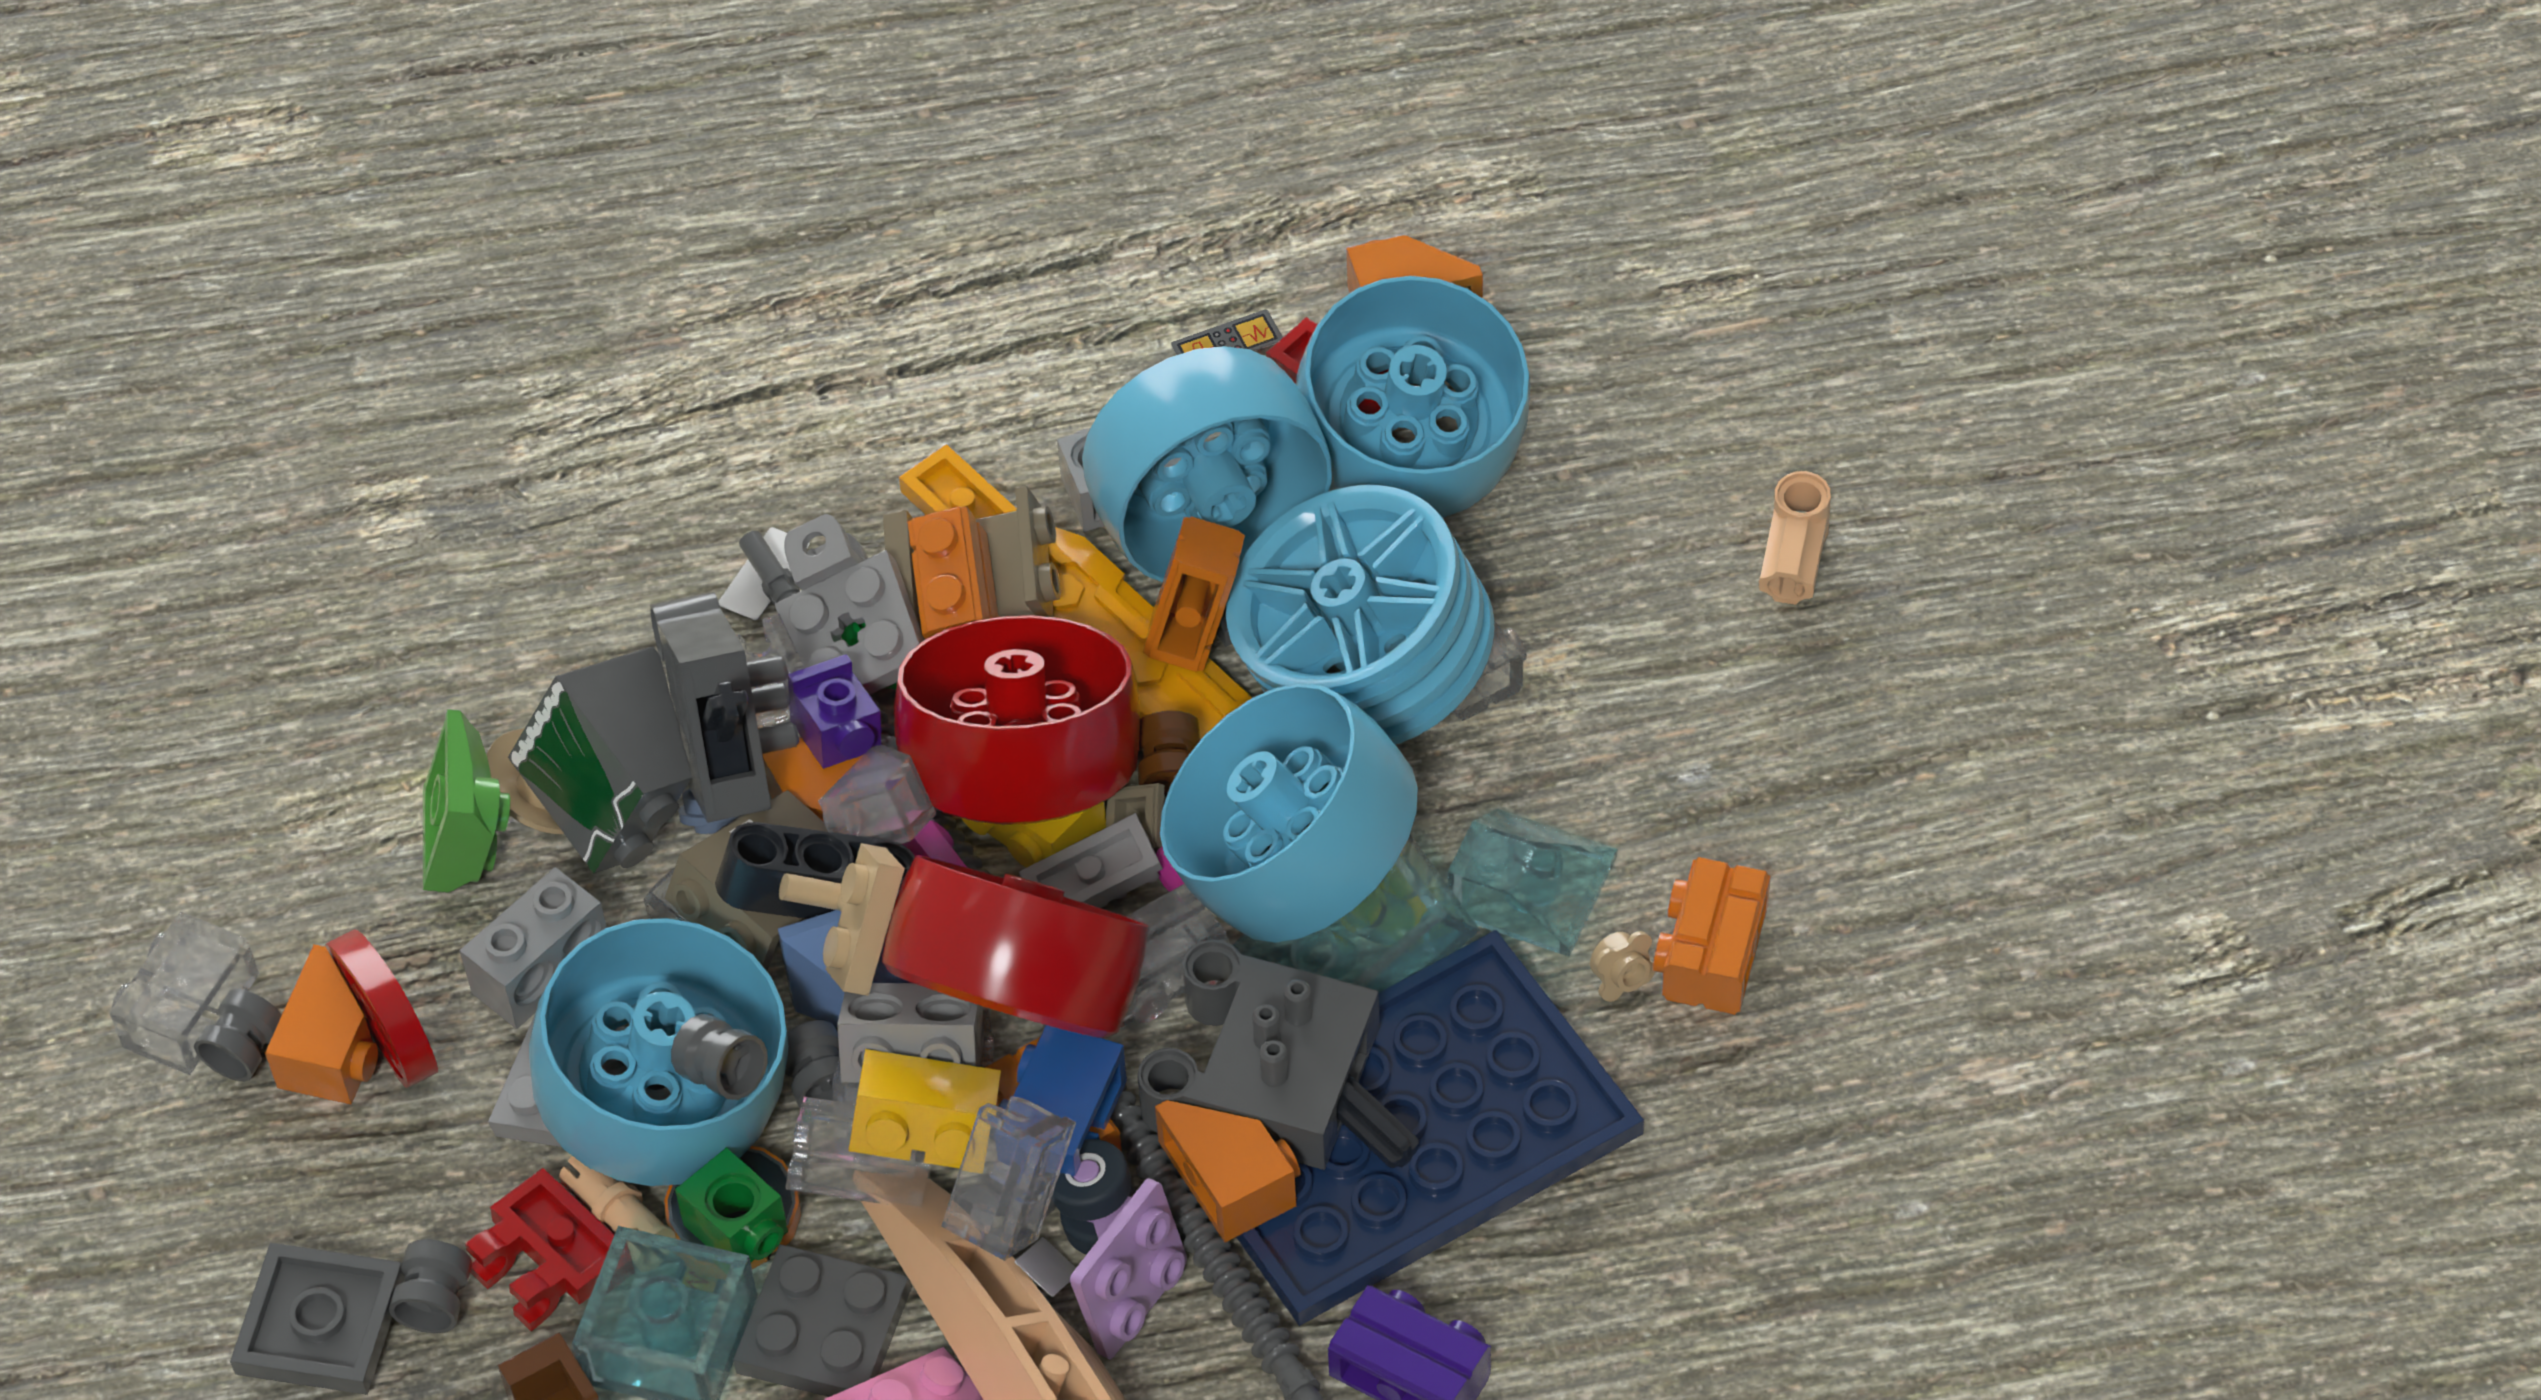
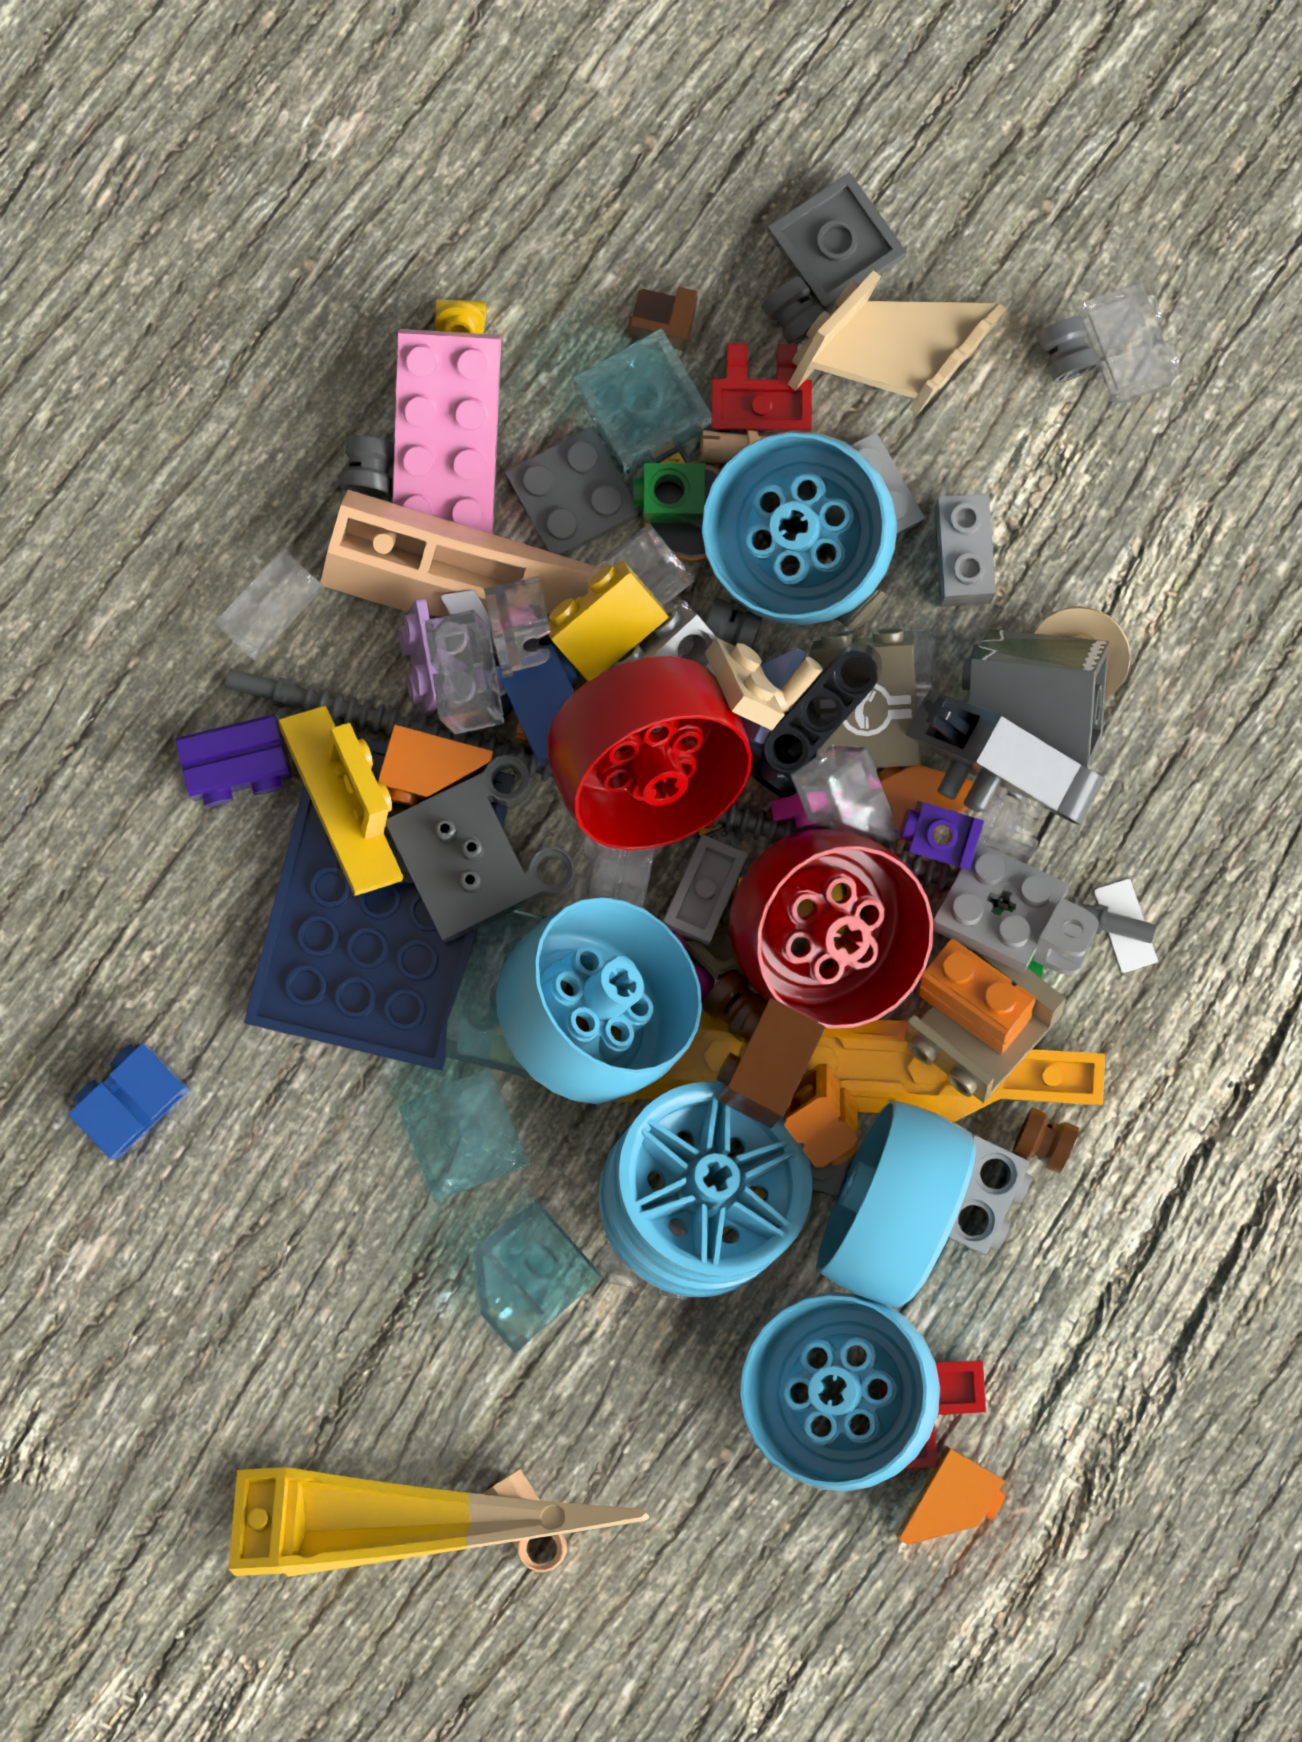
camera: 135 degrees right, 30 degrees up
(322, 1036) = (1023, 395): orange slope -> none
(384, 1158) = (894, 343): none -> tan piece
(385, 1008) = (1001, 429): red piece -> none
(460, 809) = (1098, 584): bright green slope -> none
(720, 1057) = (741, 535): dark grey wheel -> none
(1019, 453) = (1048, 1141): none -> reddish brown wheel
(1088, 1183) = (467, 673): none -> clear piece
(1190, 638) = (769, 1062): none -> reddish brown piece
(1247, 332) = (1029, 1361): sticker -> none
(1333, 1192) = (345, 796): none -> yellow bracket
(1590, 701) = (529, 1275): none -> clear light blue slope
(1622, 963) = (353, 1118): tan plate -> none
(1714, 935) = (318, 1186): orange brick -> none
(1827, 1162) = (128, 1101): none -> blue piece
(1985, 669) = (326, 1522): none -> yellow plate

